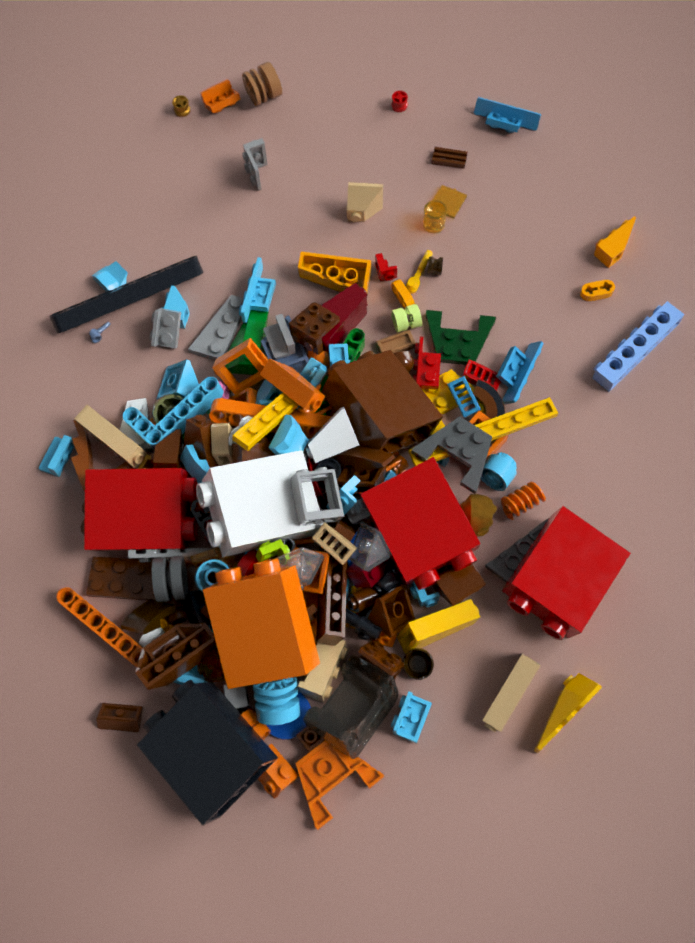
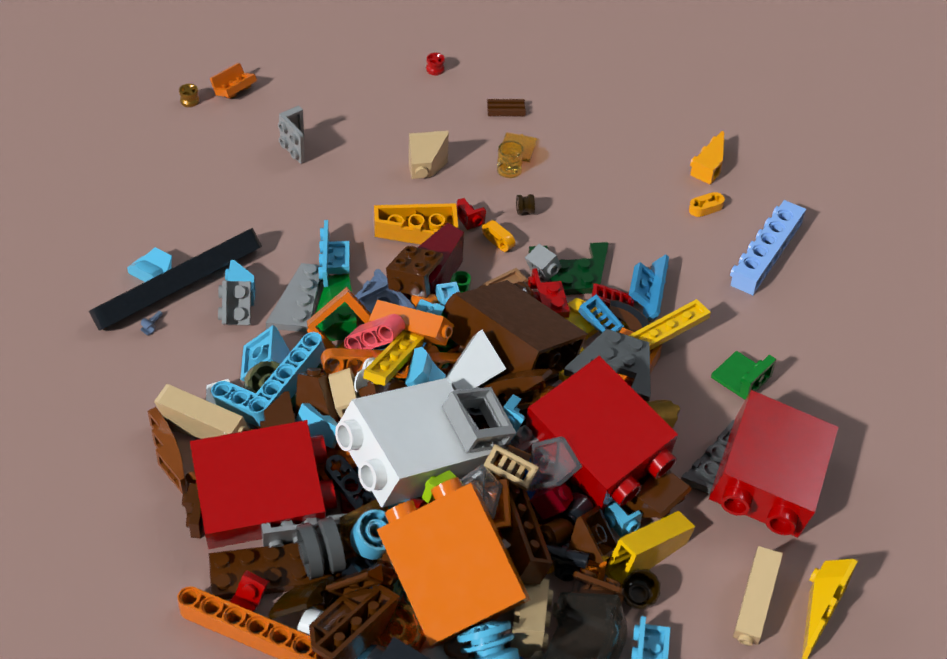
camera: 20 degrees left, 20 degrees down
(57, 455) = (133, 455): medium azure panel -> none
(111, 602) = (250, 591): none -> red bracket
(189, 614) = (357, 581): none -> reddish brown slope
(260, 390) = (375, 333): none -> coral beam
(262, 84) = (279, 62): medium nougat wheel -> none
(280, 338) = (377, 286): light grey panel -> none
(400, 320) = (510, 255): yellowish green wheel -> none
(414, 282) = (506, 222): yellow piece -> none
(431, 331) = (544, 260): none -> light grey brick
(499, 471) = (666, 381): medium azure piece -> none
(506, 116) = (555, 62): dark azure bracket -> none
(521, 498) = (700, 407): orange piece -> none
(571, 473) = (742, 374): none -> green bracket

